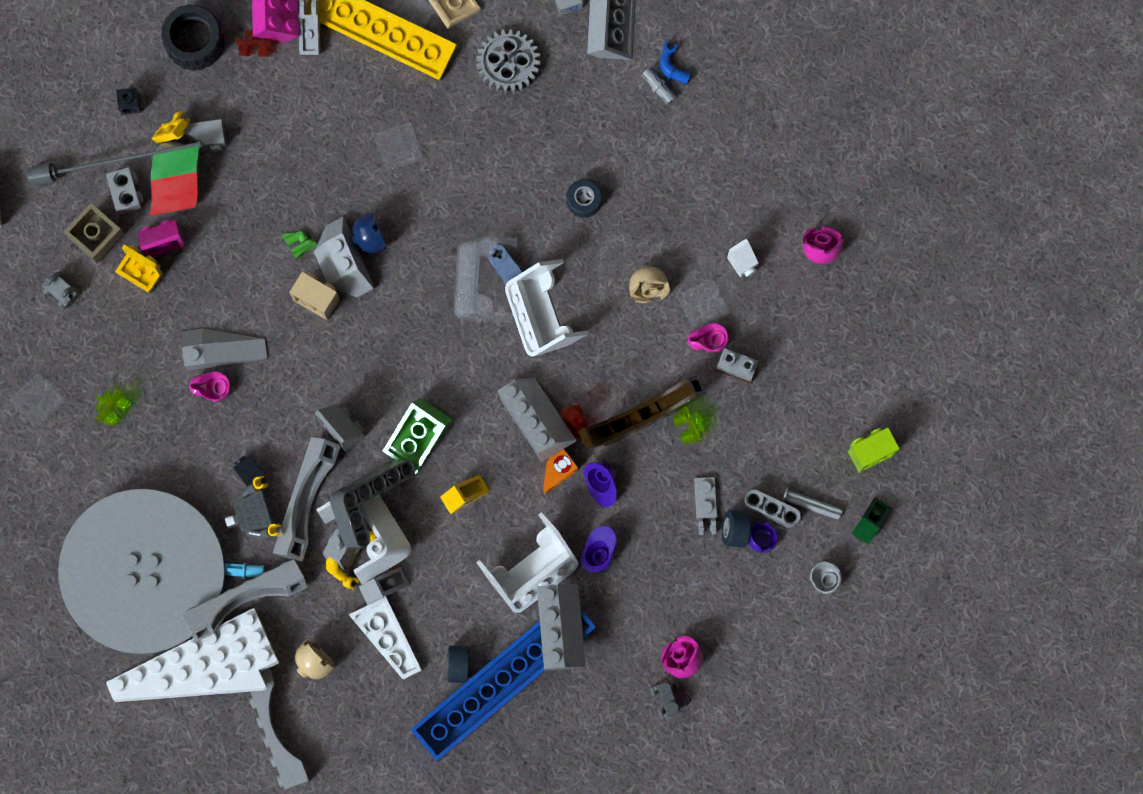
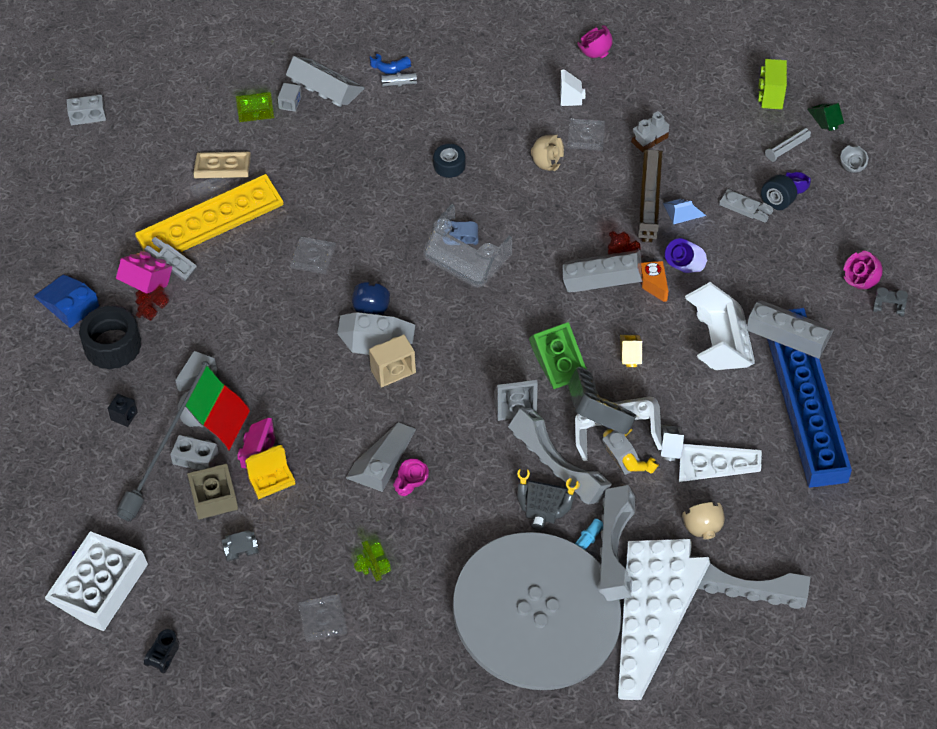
camera: 55 degrees left, 25 degrees down
(172, 129) = (173, 389): yellow plate -> none
(247, 470) = (504, 487): black brick -> none
(306, 243) = (332, 353): bright green piece -> none
(458, 664) = (773, 420): black wheel -> none
(520, 73) = (318, 151): light grey gear -> none
(534, 310) = (524, 237): white windscreen -> none
(599, 550) = (738, 280): dark purple piece -> none
(661, 447) = (682, 211): none -> light blue slope
(692, 434) = (678, 182): clear neon green hips -> none
(716, 340) = (616, 139): dark pink hair -> none
(782, 508) = (777, 164): light grey beam -> none

